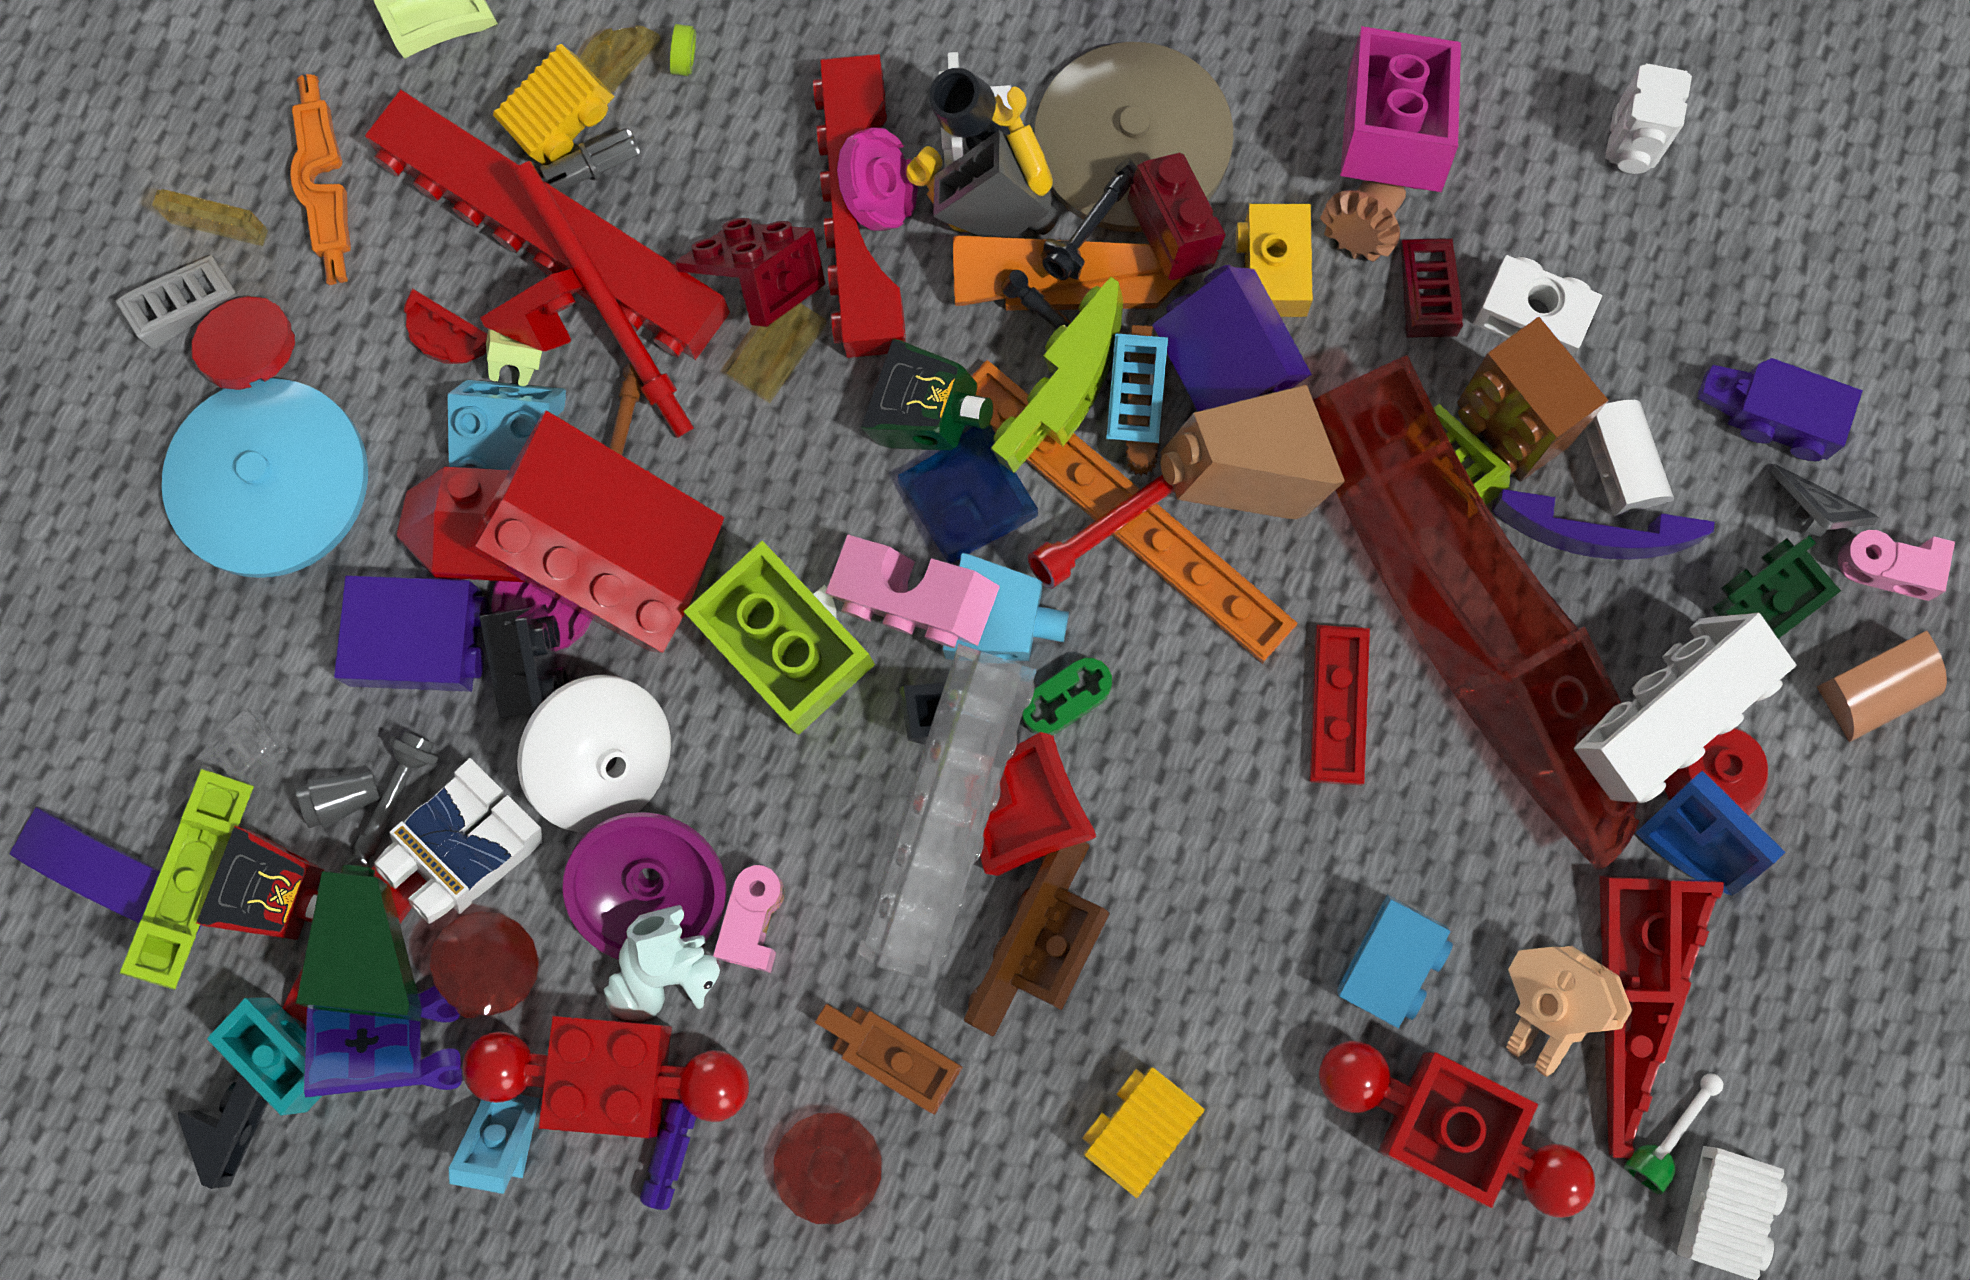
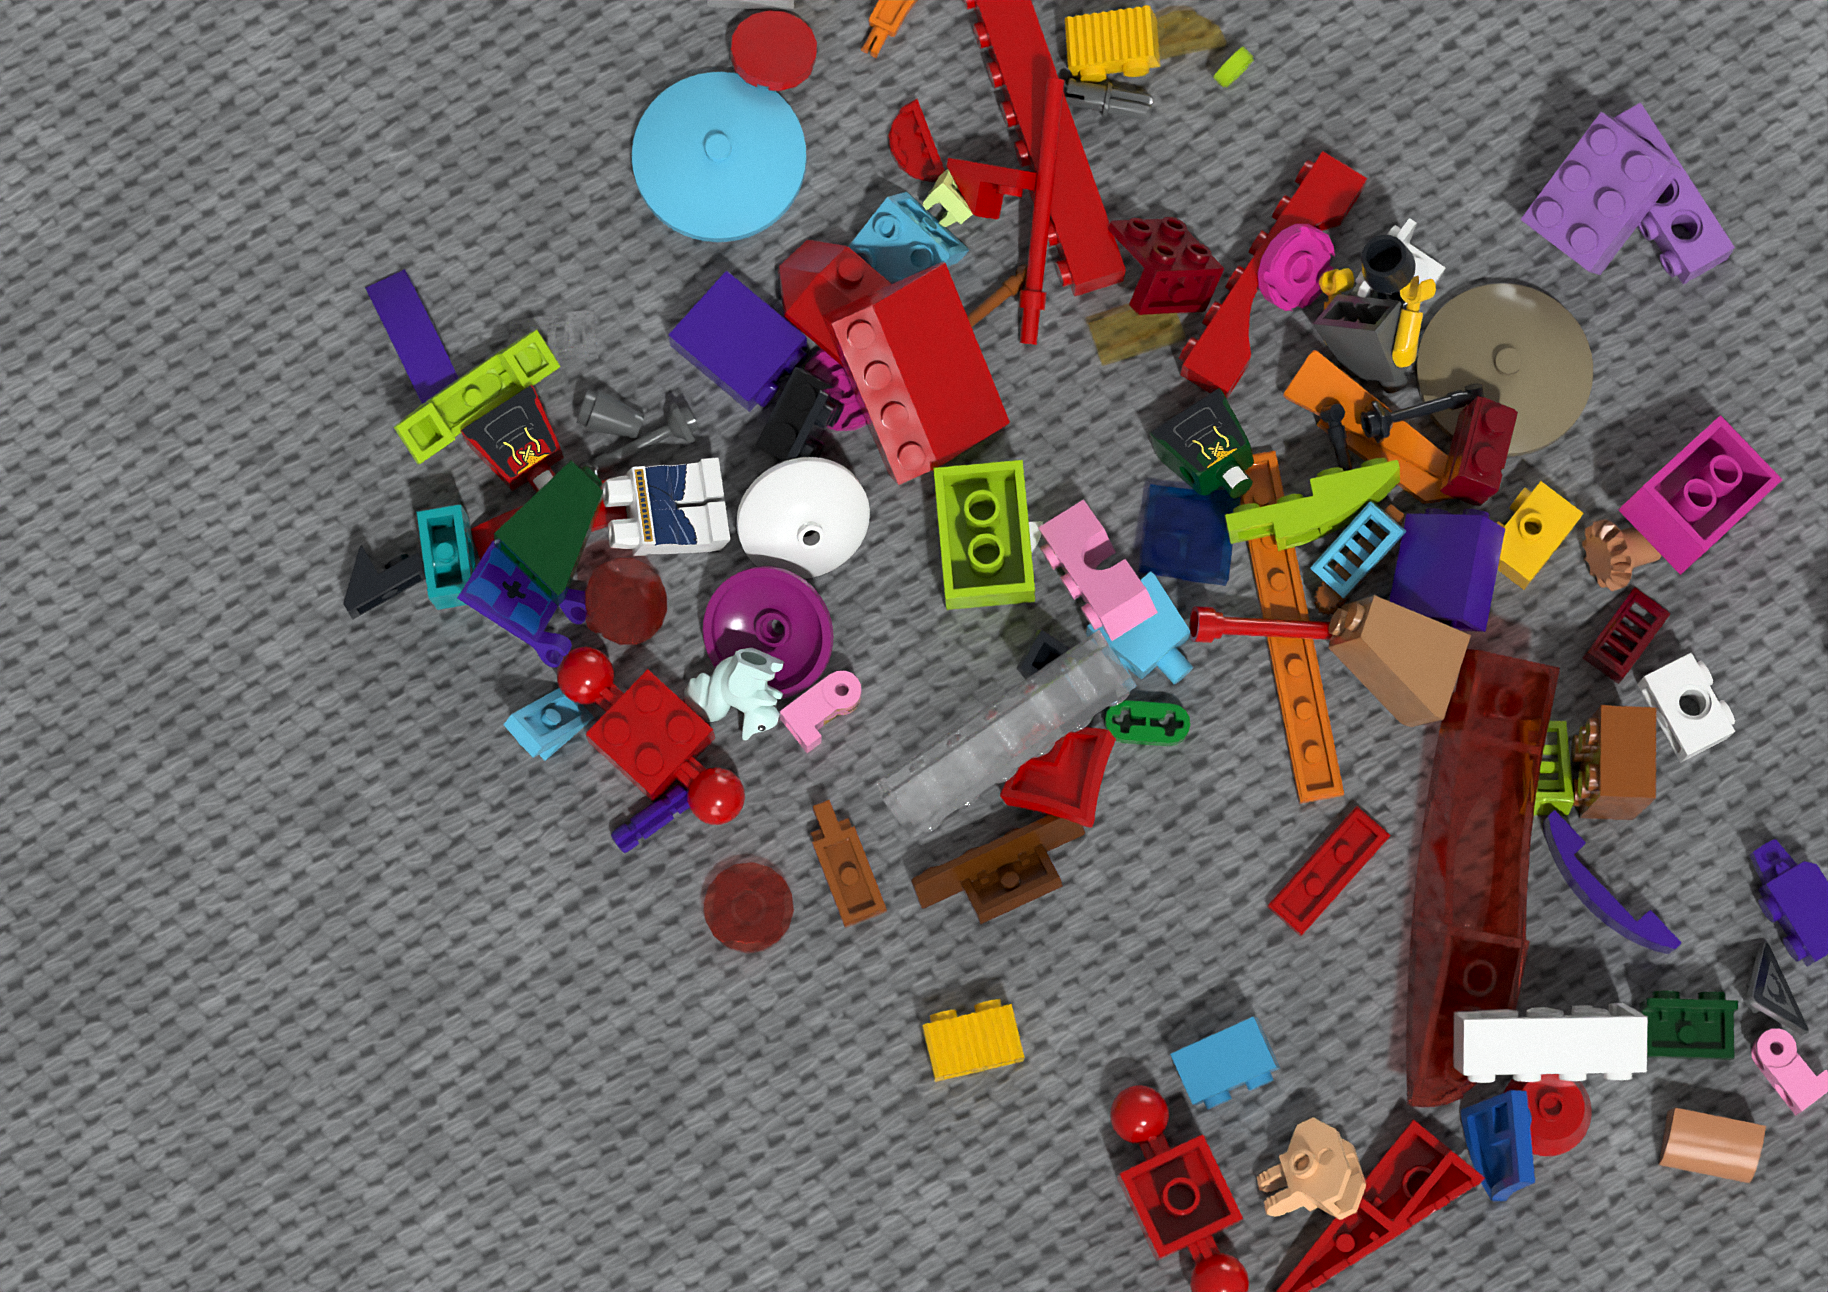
camera: 30 degrees right, 0 degrees up
(1627, 458) = (1666, 857): white brick -> none

